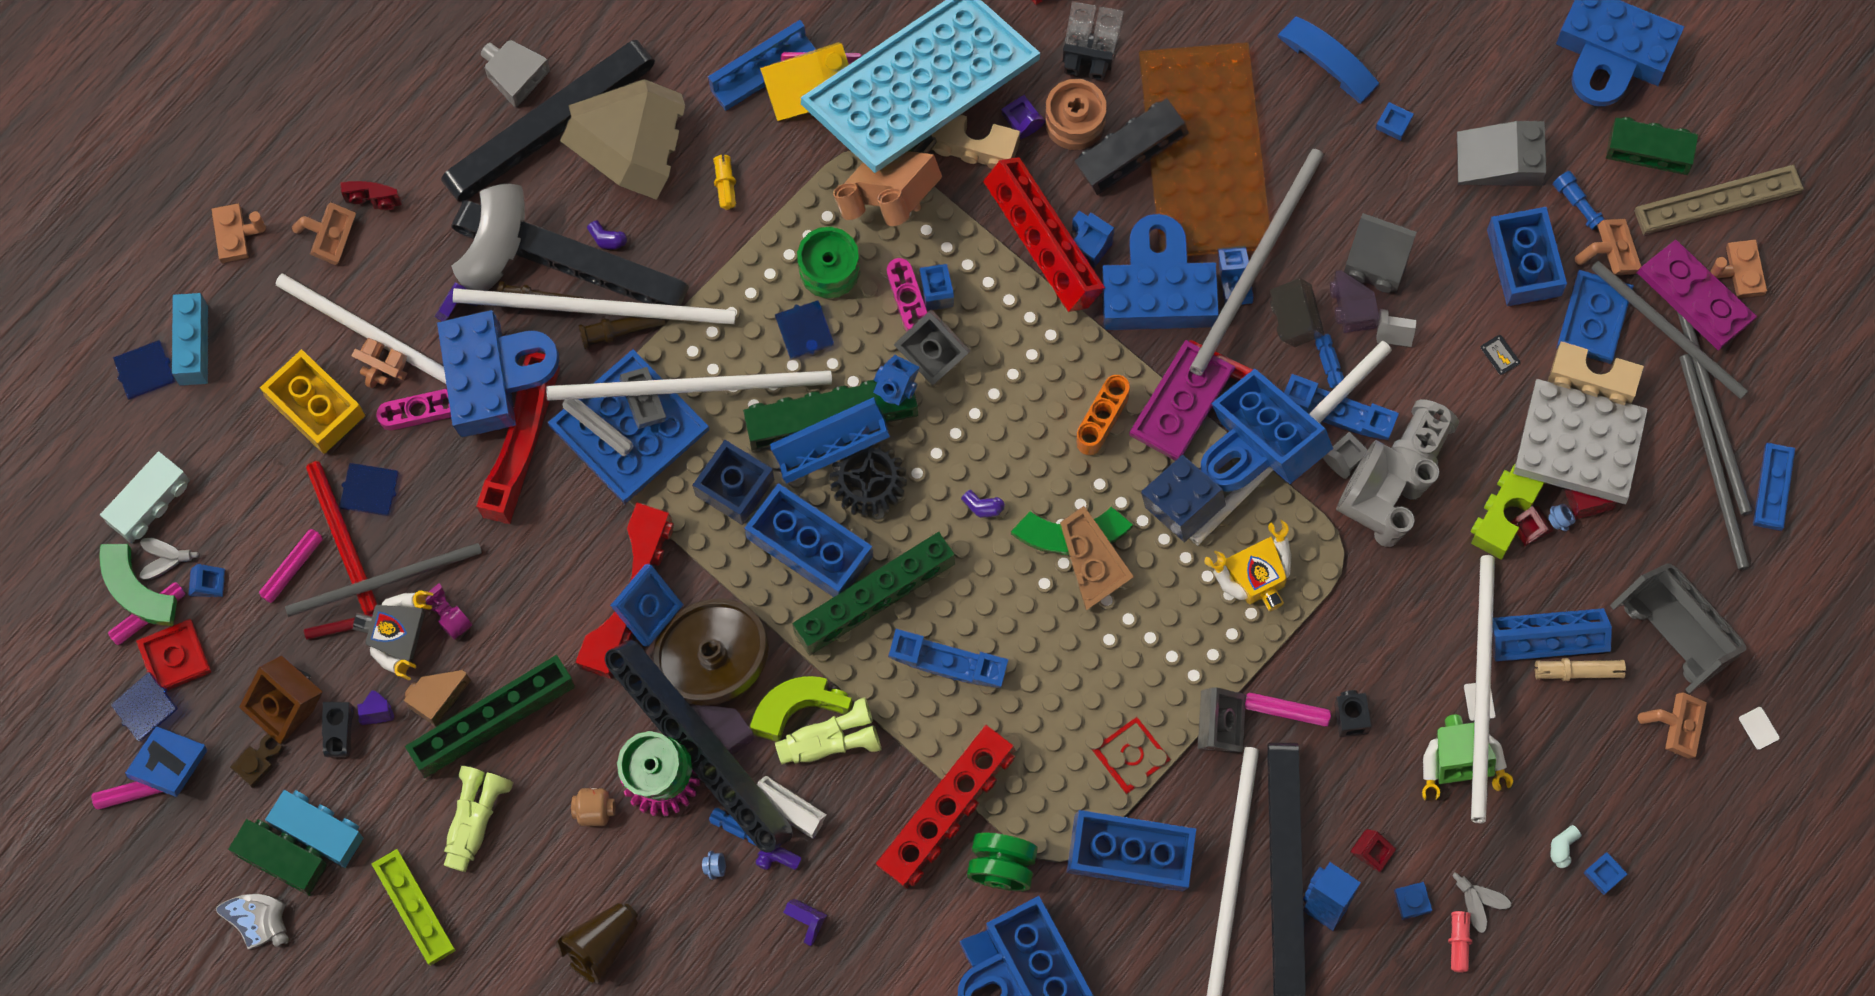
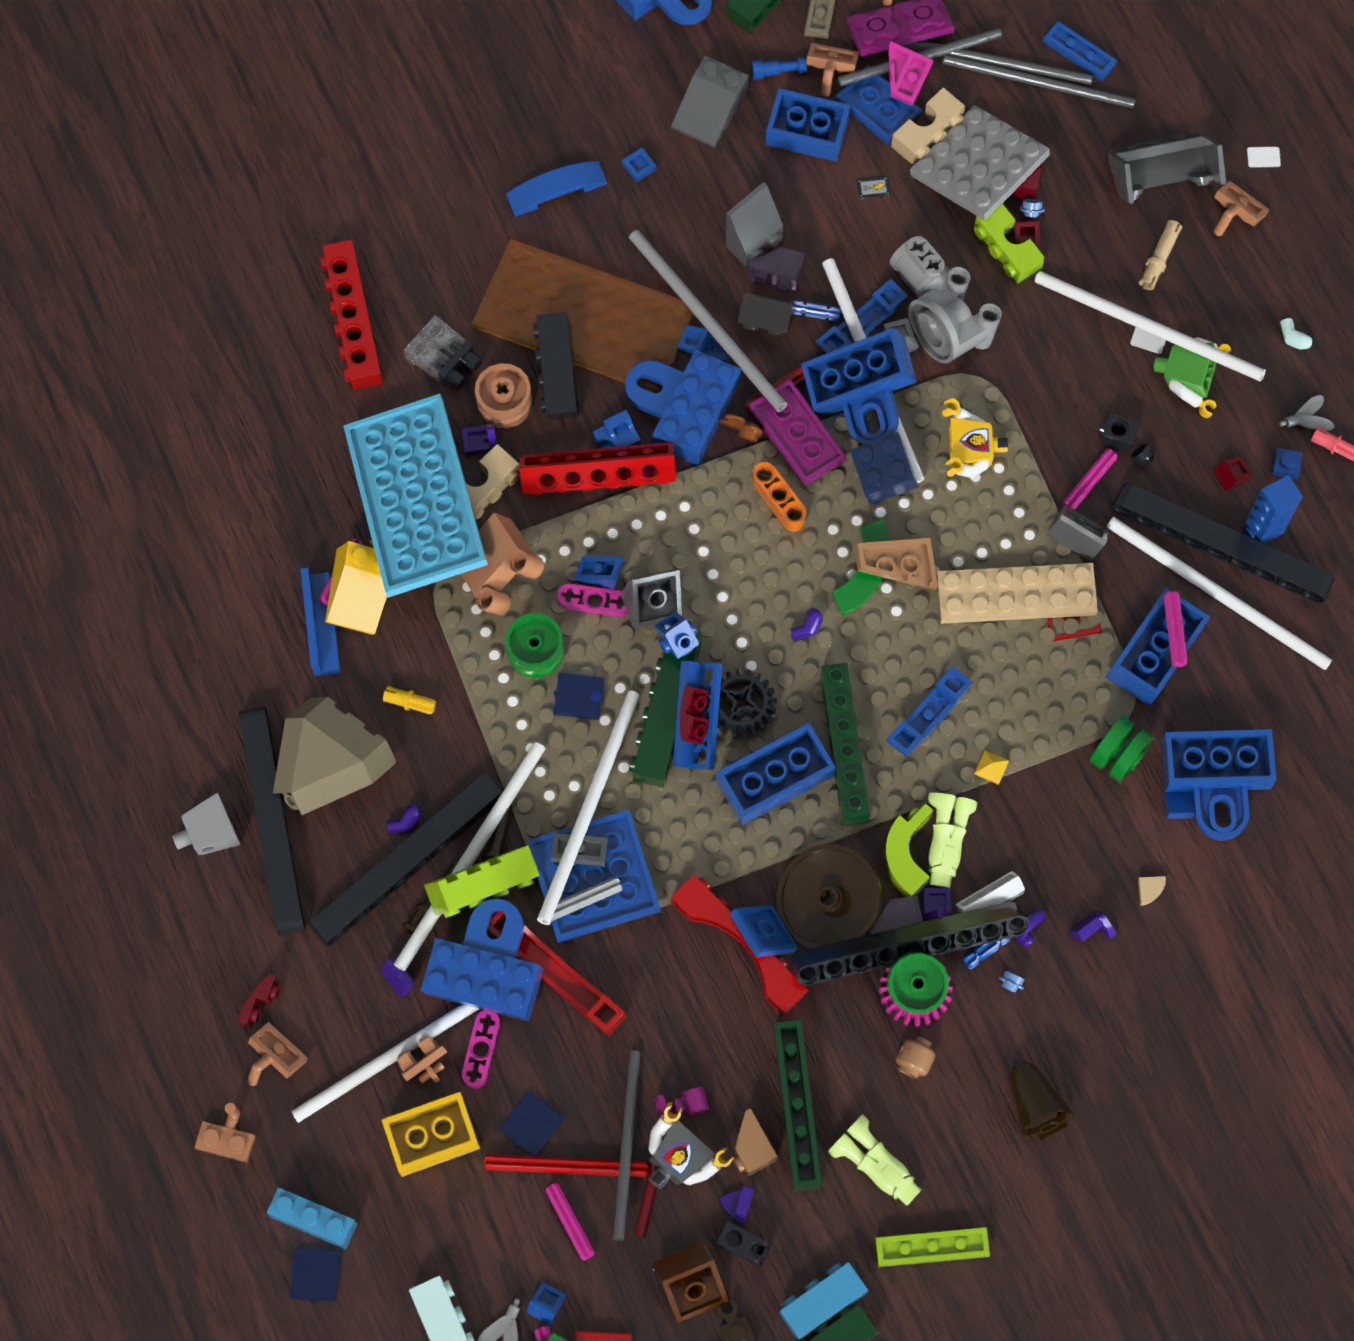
camera: 65 degrees left, 0 degrees up
(495, 240) = (368, 907): light grey brick -> none
(568, 325) = (481, 881): none -> lime wedge
(733, 482) = (691, 810): dark blue brick -> none
(759, 760) = (936, 903): none -> dark purple tile
(822, 435) = (692, 724): none -> dark red slope
(876, 959) = (1150, 888): none -> tan tile
(924, 747) = (991, 767): none -> yellow slope
(985, 744) = (1075, 835): red brick -> none
(1122, 690) = (1017, 593): none -> tan plate
(1151, 855) = (1175, 629): none -> dark pink axle
(1161, 357) = (746, 429): none -> dark orange plate
(1342, 748) = (1143, 455): none -> black hinge
(1395, 330) = (817, 249): light grey tile -> none
(1551, 638) = (1127, 259): blue fence -> none
(1605, 873) = (1330, 316): blue plate -> none
(1639, 324) = (906, 73): none -> dark pink wing

